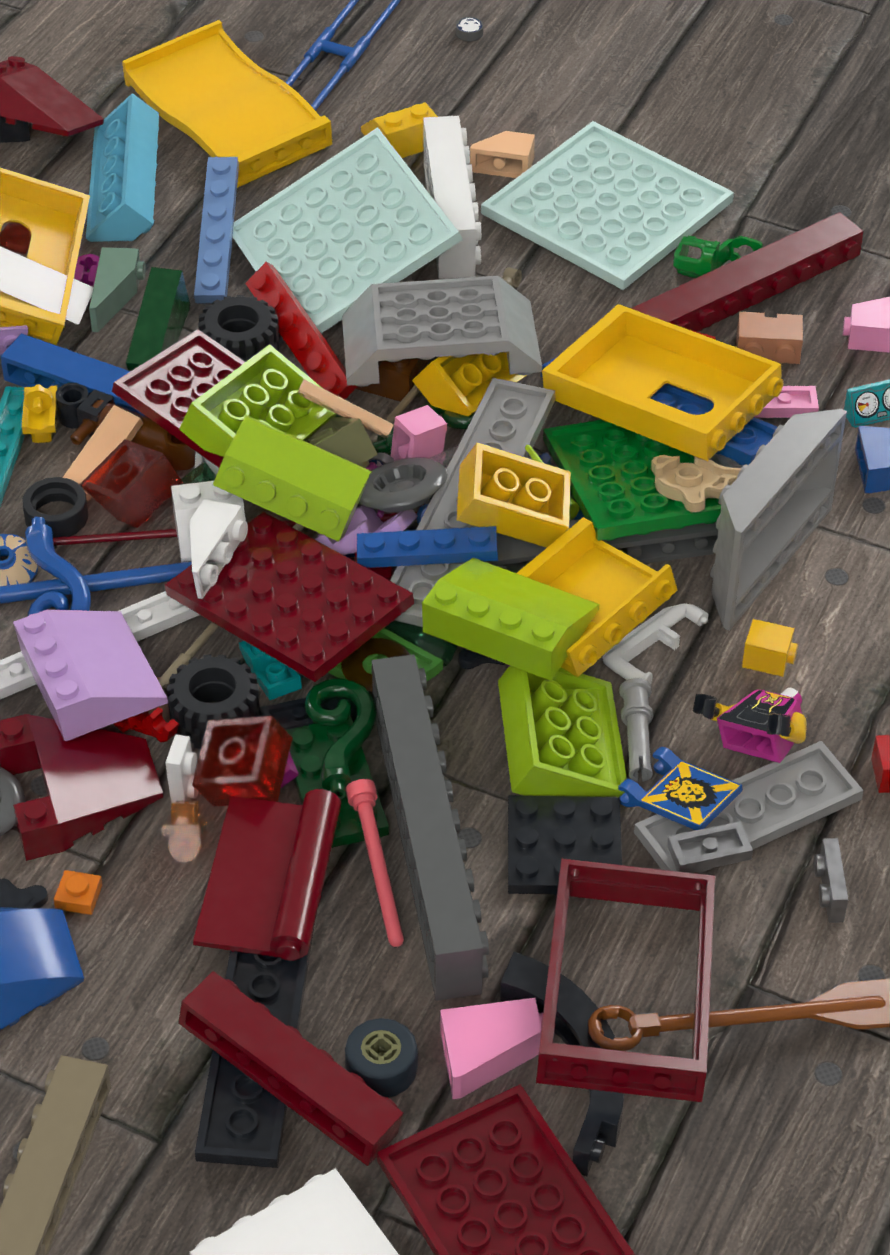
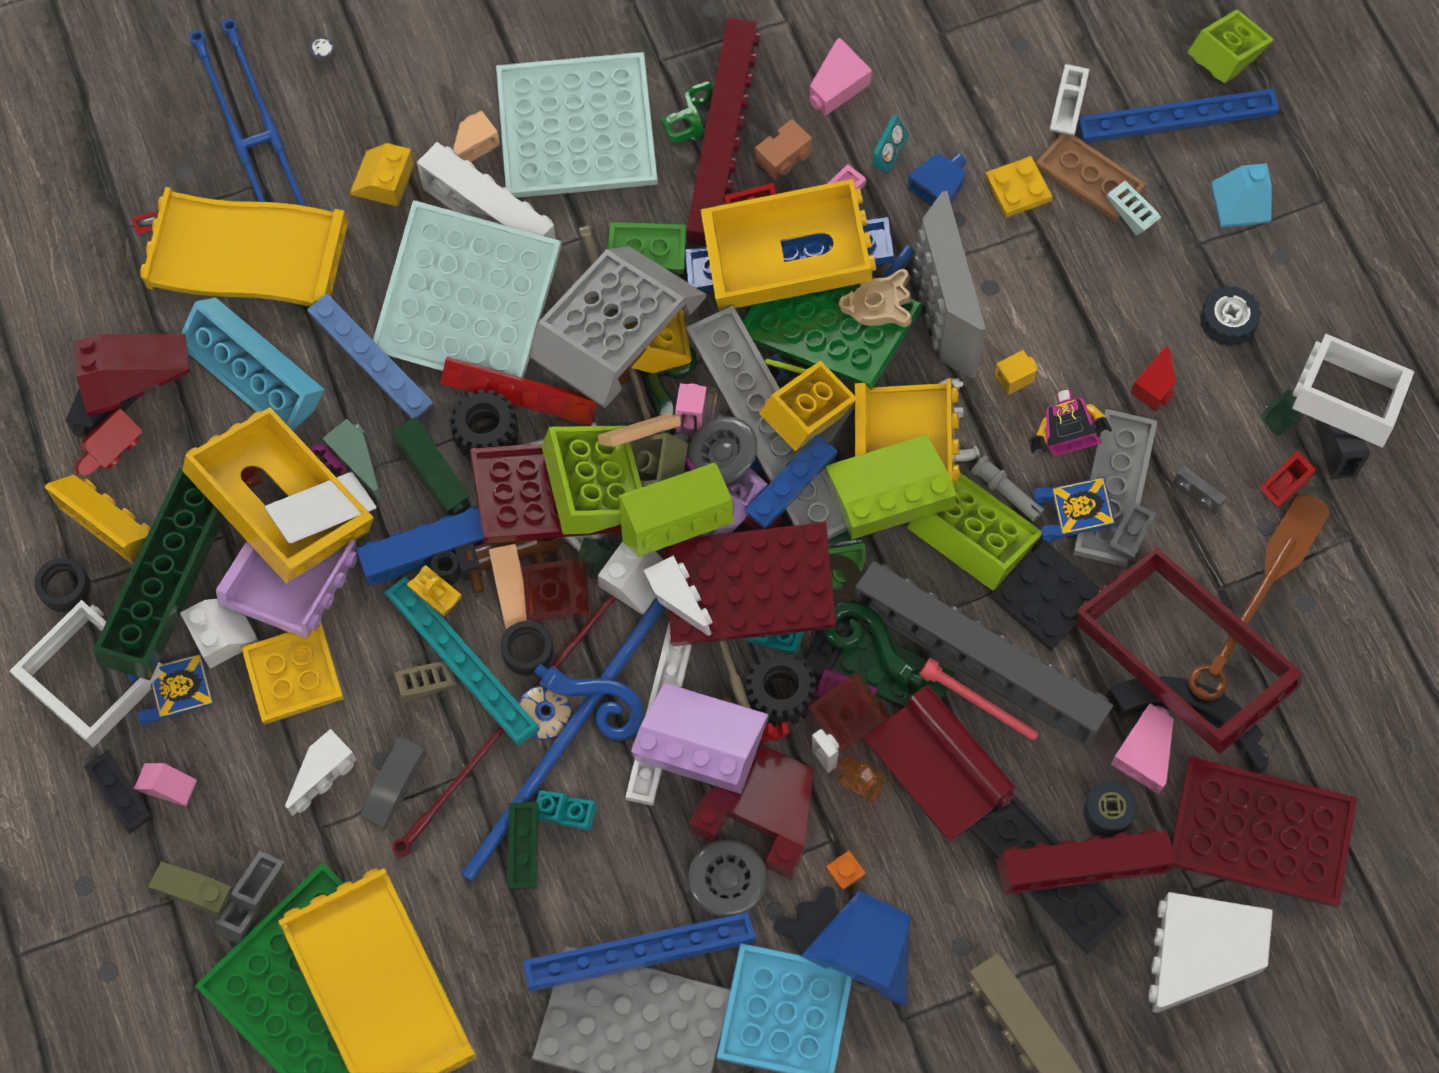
camera: 45 degrees left, 20 degrees up
(556, 319) = (658, 242): none -> bright green plate

